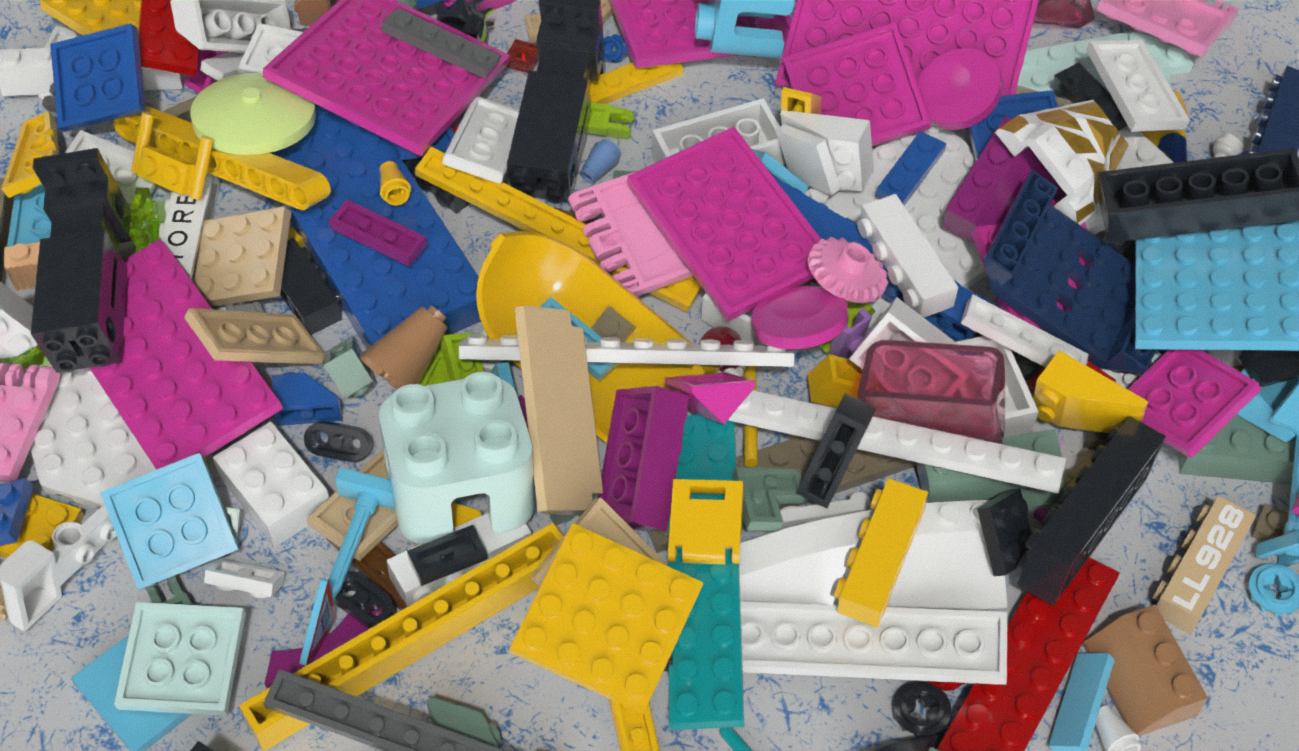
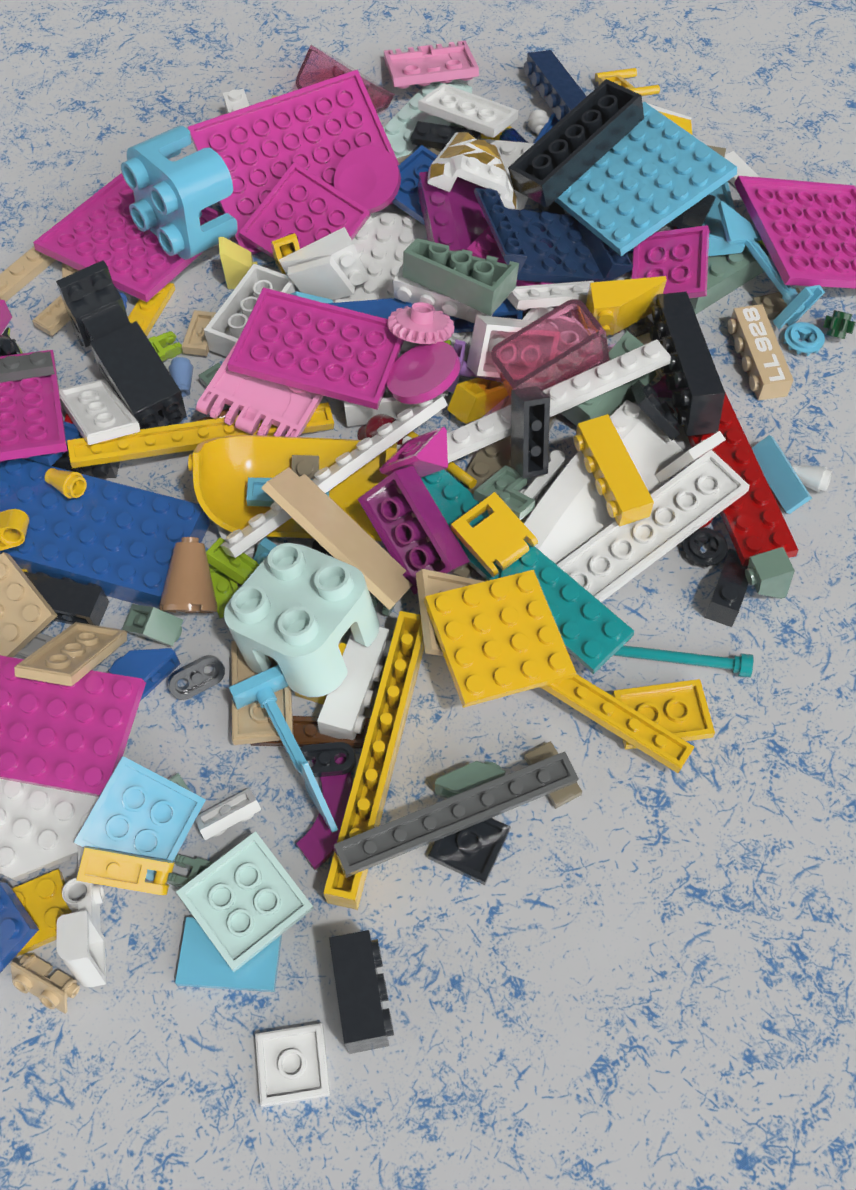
camera: 40 degrees left, 5 degrees up
(117, 550) = (124, 870): none -> yellow plate
(271, 483) = (181, 739): white brick -> none
(378, 232) = (89, 521): magenta plate -> none
(446, 555) = (356, 684): black plate -> none
(523, 56) = (59, 344): clear red plate -> none
(641, 136) = (195, 338): none -> tan plate
(753, 82) = (235, 261): none -> light yellow slope
(911, 167) = (382, 248): blue plate -> none
(922, 250) = (459, 275): none -> sand green wedge
(980, 601) = (690, 457): none -> white tile
(1150, 673) = (797, 427): medium nougat slope -> none

